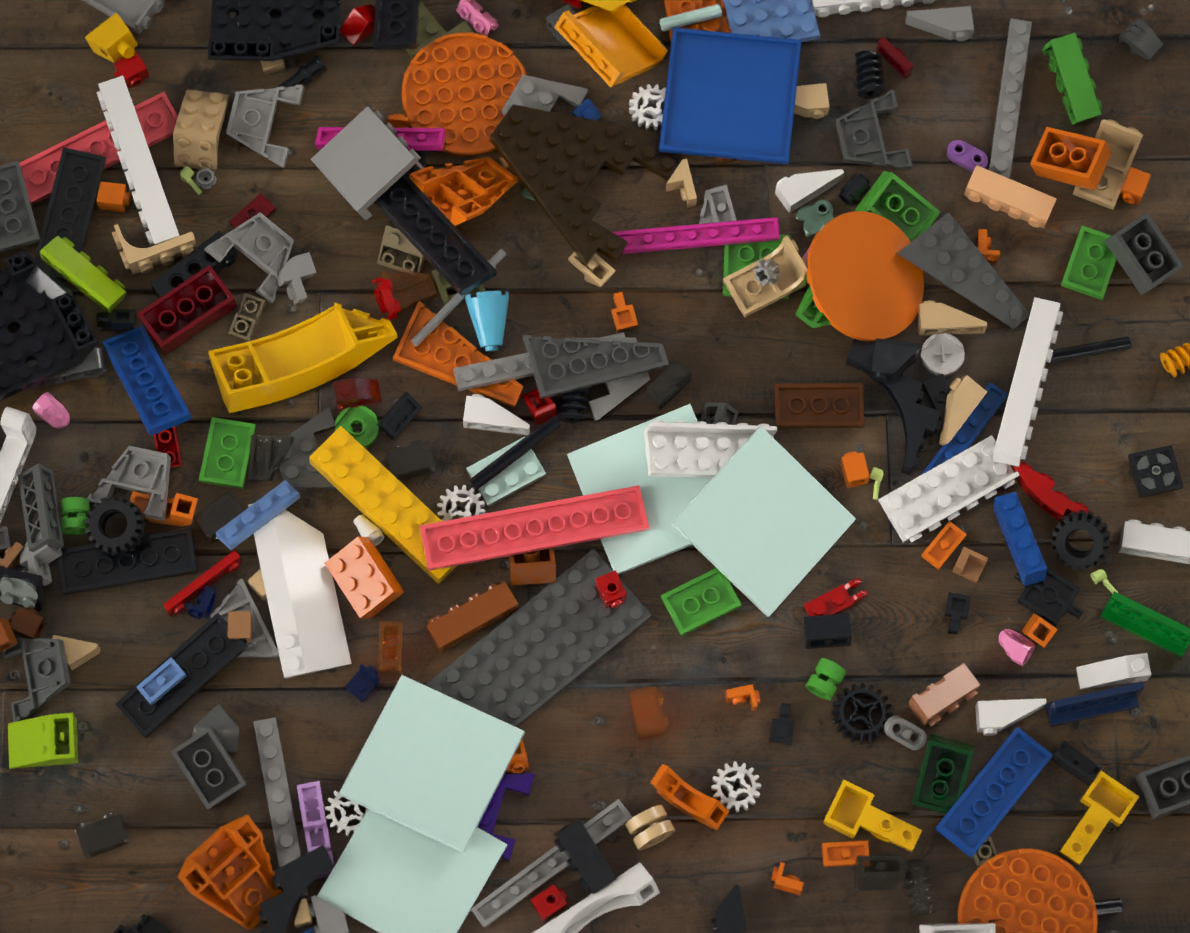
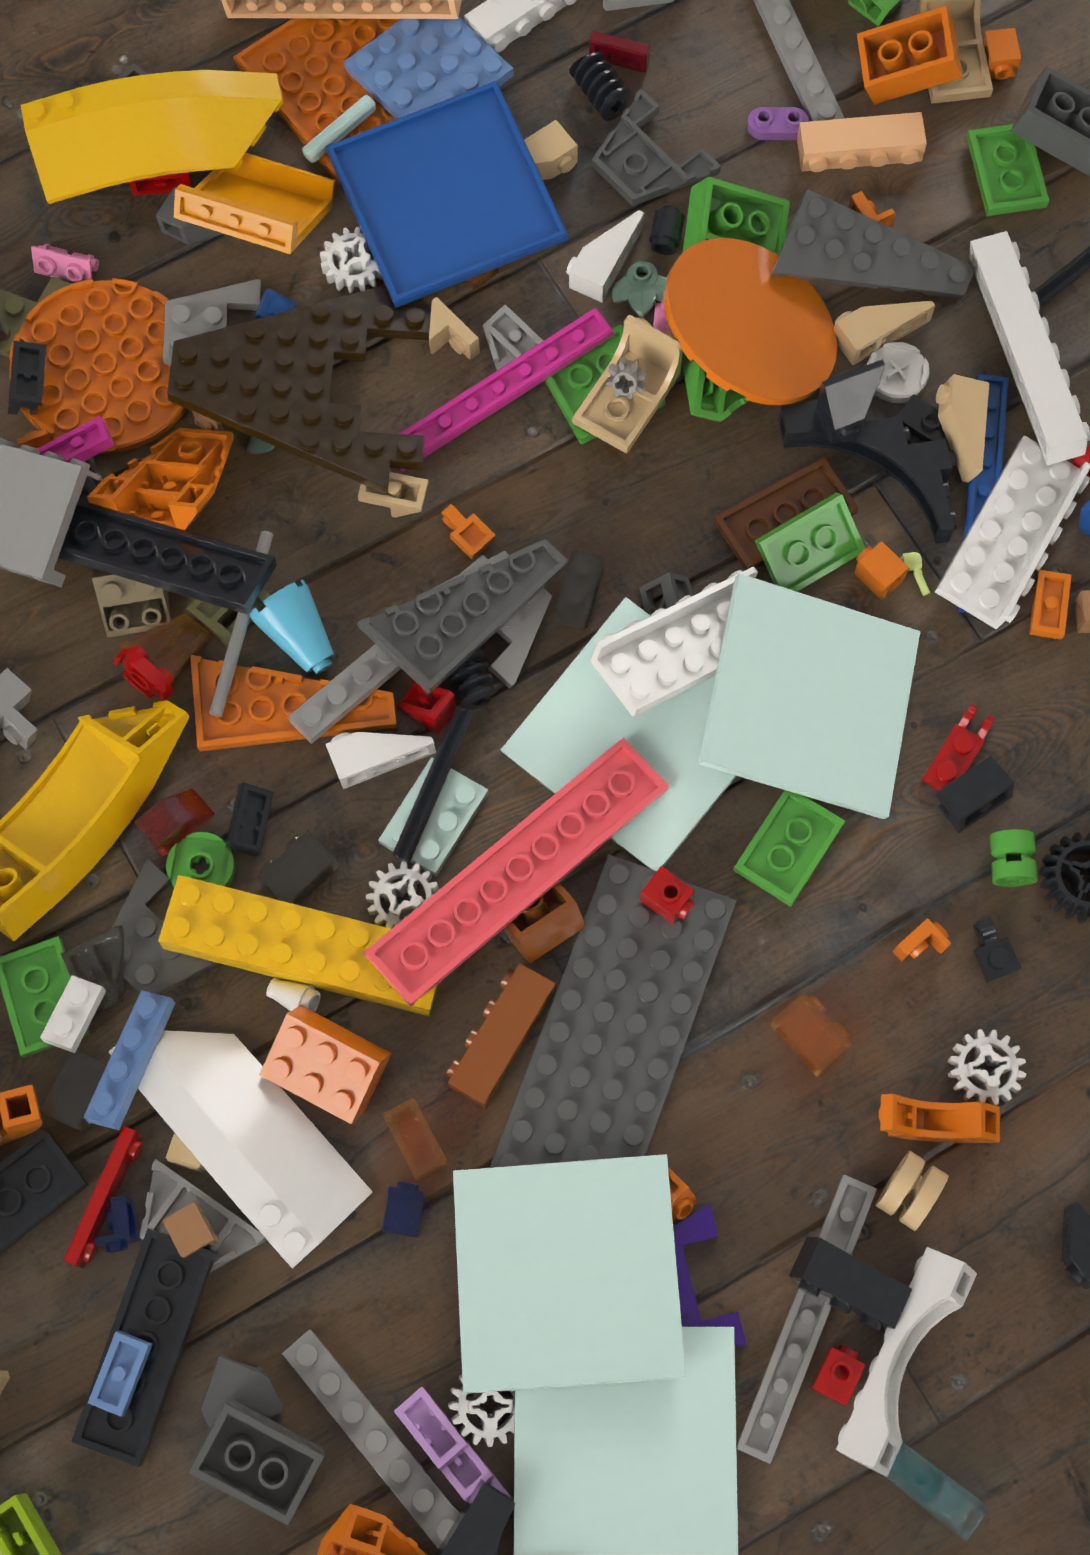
camera: 25 degrees left, 0 degrees up
(240, 472) = (73, 1014): none -> white plate
(414, 80) = (26, 377): none -> black hinge
(820, 432) = (811, 544): none -> bright green plate

